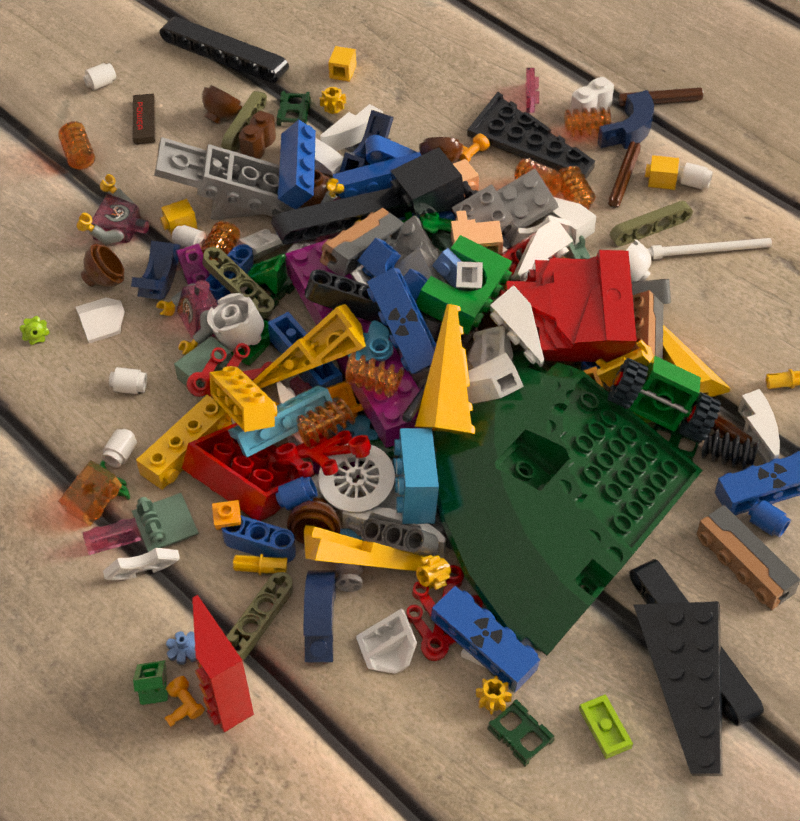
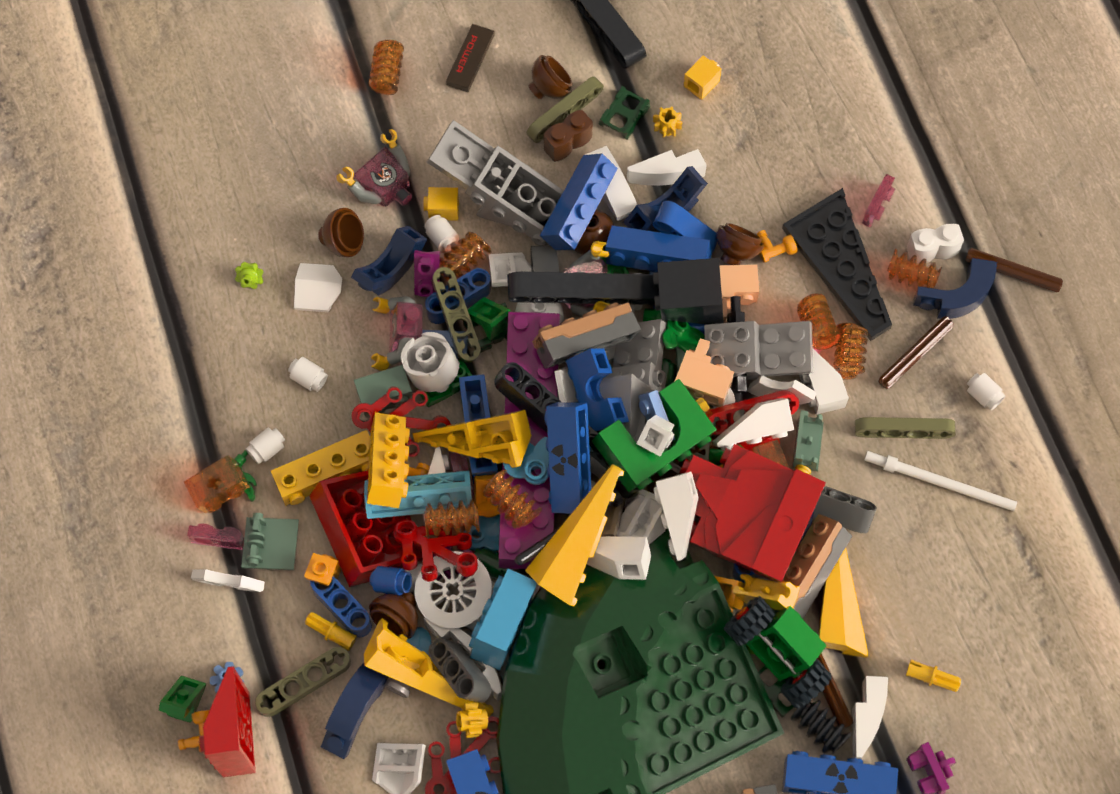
camera: 25 degrees right, 15 degrees up
(639, 261) = (850, 472): white cylinder -> none
(662, 172) = (954, 370): yellow brick -> none

